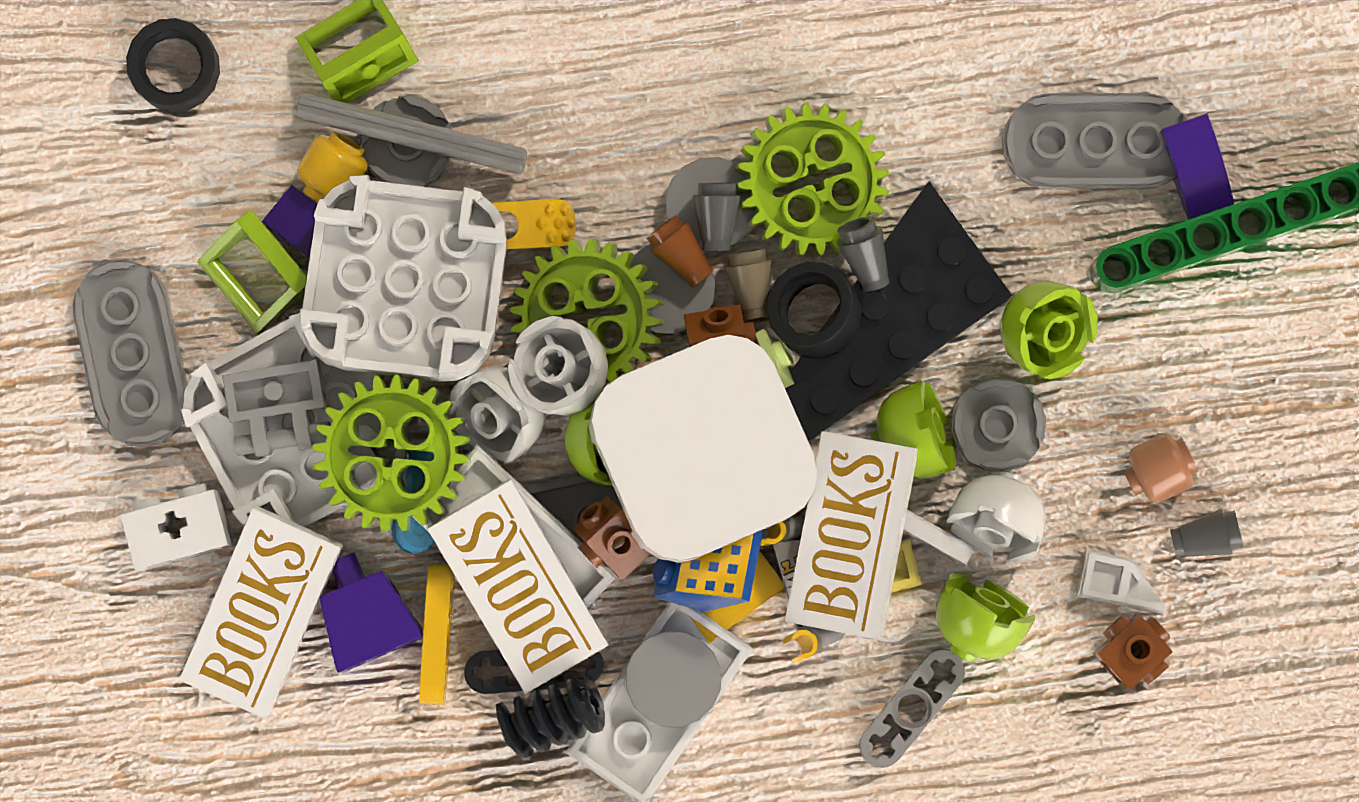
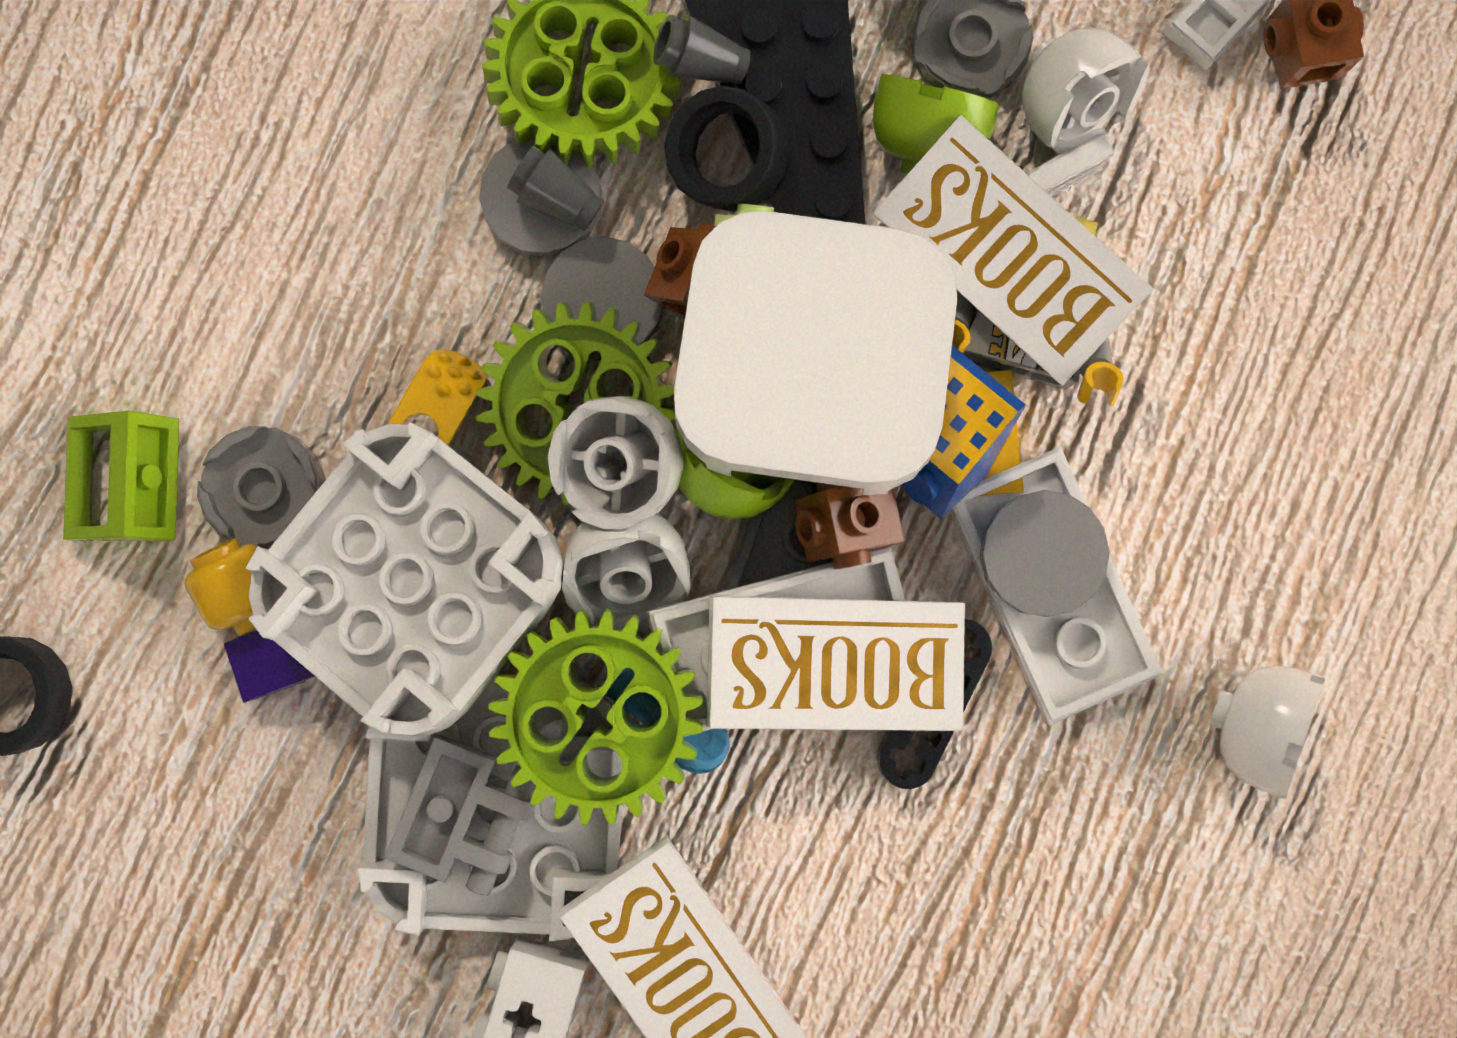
camera: 60 degrees left, 0 degrees up
(130, 352) = (296, 943): light grey tile -> none
(210, 262) = (236, 734): lime tile -> none
(365, 616) = (763, 859): dark purple torso -> none
(411, 133) = (248, 474): light grey axle -> none
(436, 635) = (832, 790): yellow beam -> none
(552, 719) = (1008, 719): black piece -> none
(680, 250) = (569, 254): dark orange cone -> none
(751, 281) = (652, 202): dark tan cone -> none
(943, 687) = (1239, 291): light grey beam -> none
(981, 620) = (1181, 176): lime cylinder -> none

